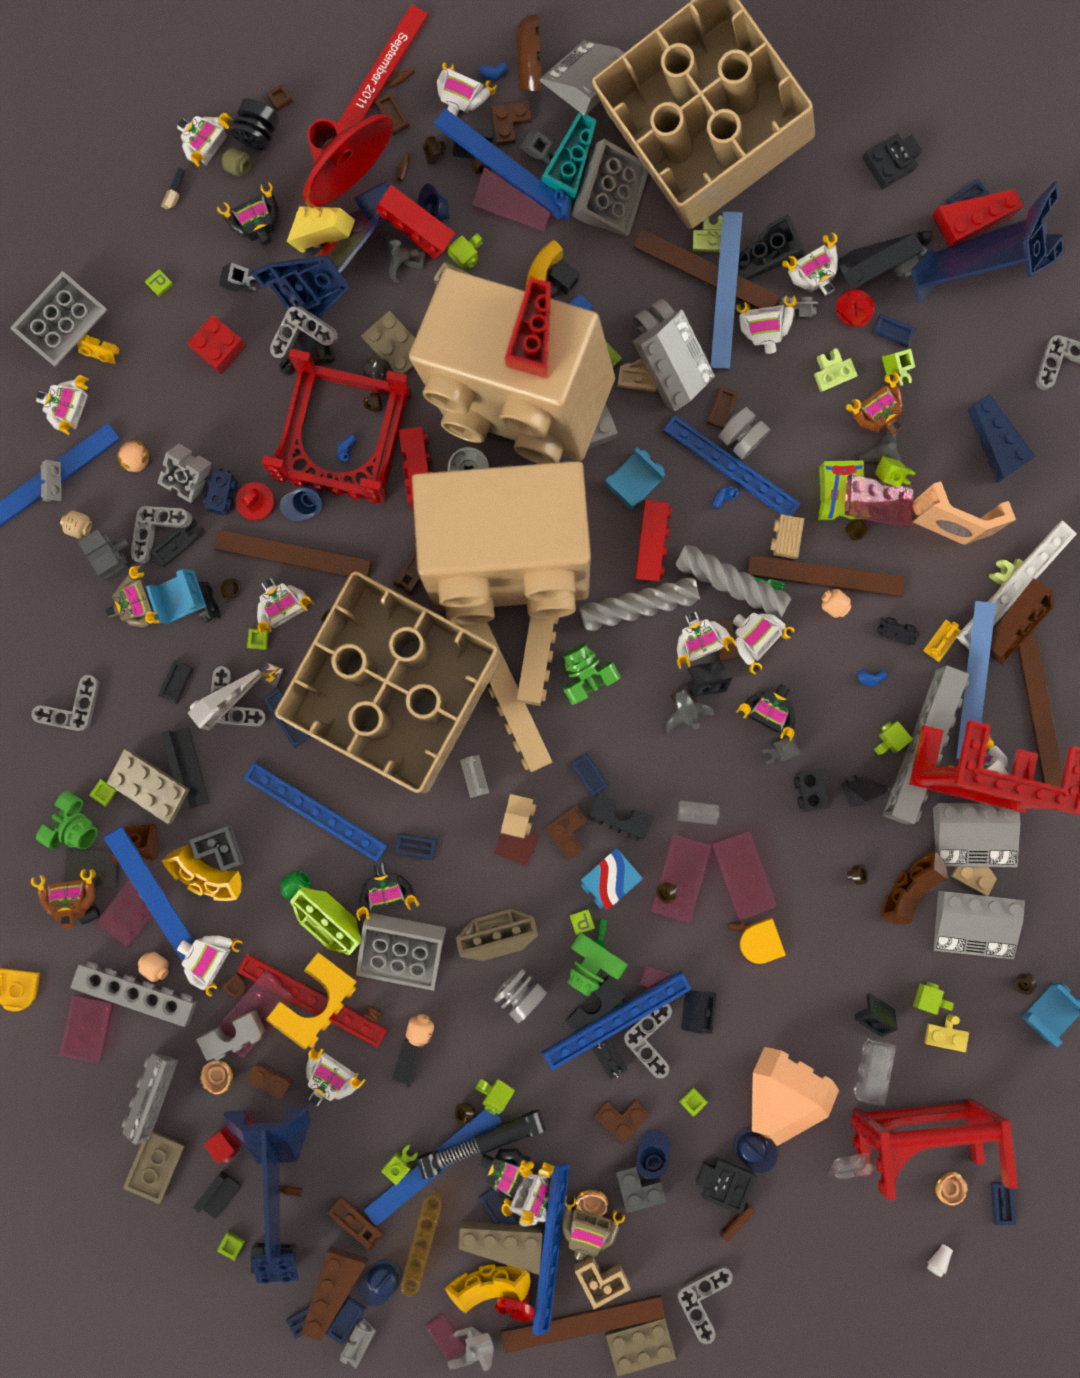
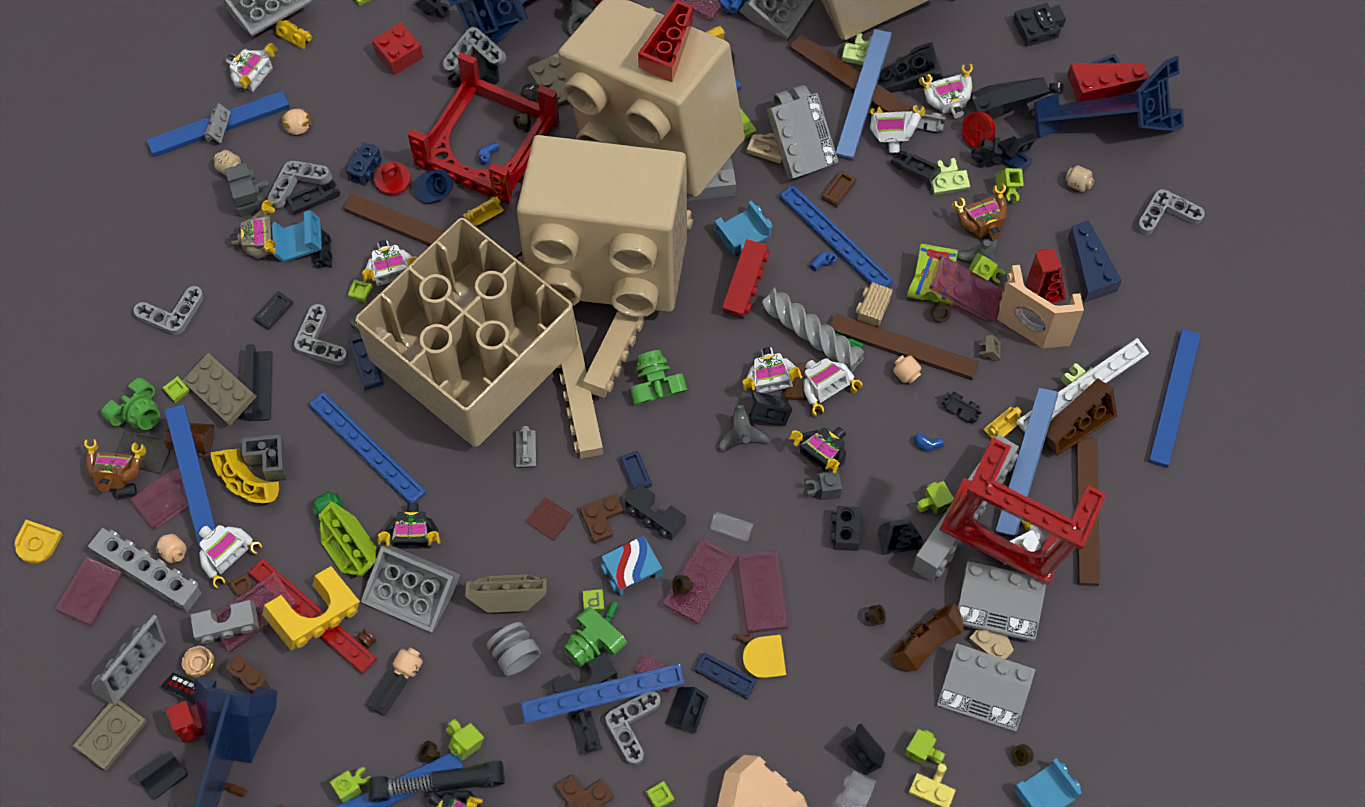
camera: 15 degrees right, 20 degrees down
(184, 472) = (337, 139): light grey brick -> none
(212, 1104) = (180, 686): none -> black sticker
(216, 705) = (306, 331): white wedge -> none
(230, 588) = (348, 242): dark brown tile -> none
(329, 1078) = (305, 686): torso -> none
(361, 520) = (484, 212): none -> yellow hinge
(432, 849) = (464, 510): dark blue tile -> none
(517, 816) = (555, 489): tan brick -> none
(645, 602) = (716, 331): light grey piece -> none
(727, 968) = (725, 675): none -> dark blue tile
(740, 429) = (852, 208): light grey wheel -> none
(799, 366) = (916, 166): none -> black hinge
(869, 334) = (987, 152): none -> black hips
(896, 318) = (1015, 146): none -> black panel
(916, 559) = (992, 348): none -> dark tan tile
(960, 475) = (1046, 276): none -> red wedge
(969, 341) = (1079, 178): none -> tan head

